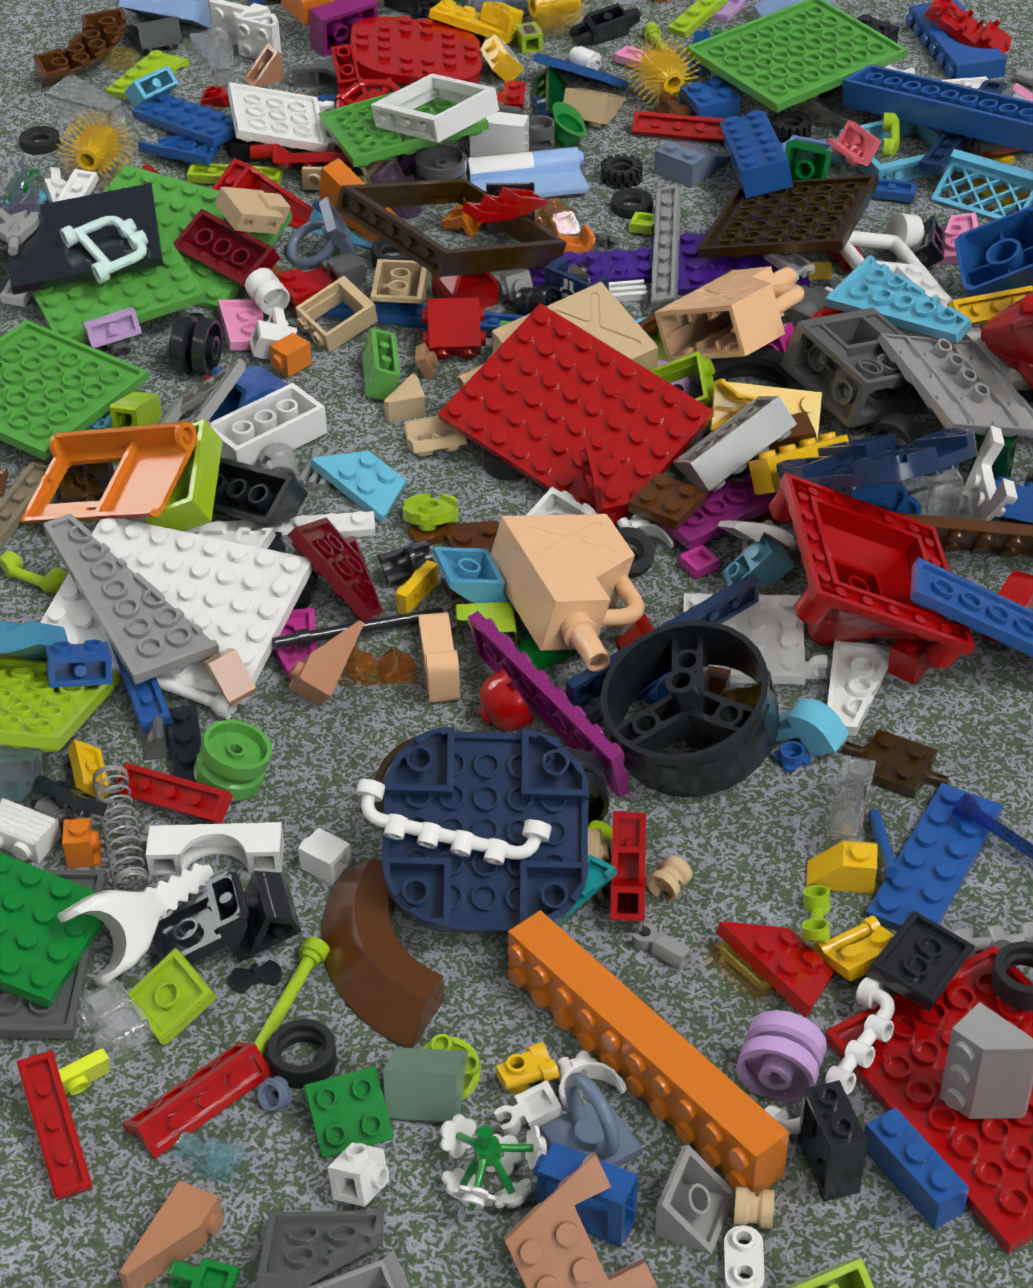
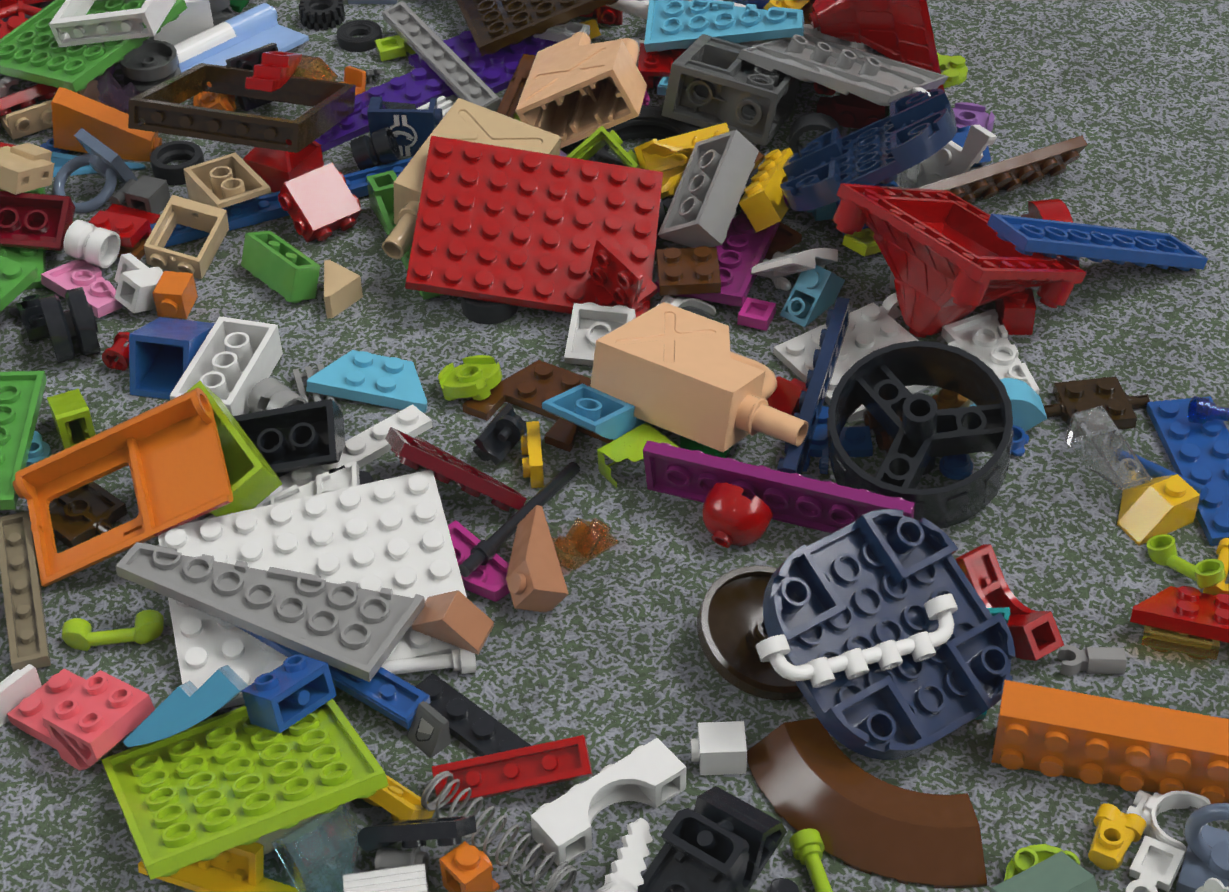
camera: 35 degrees left, 0 degrees up
(211, 390) = (169, 333): light grey hinge -> none
(233, 758) = (543, 702): bright green wheel -> none
(426, 361) = (318, 244): medium nougat plate -> none
(431, 434) = (398, 308): tan bracket -> none
(439, 657) = (646, 520): light nougat beam -> none
(512, 281) = (336, 142): light grey brick -> none
(670, 877) = (1036, 592): tan wheel -> none

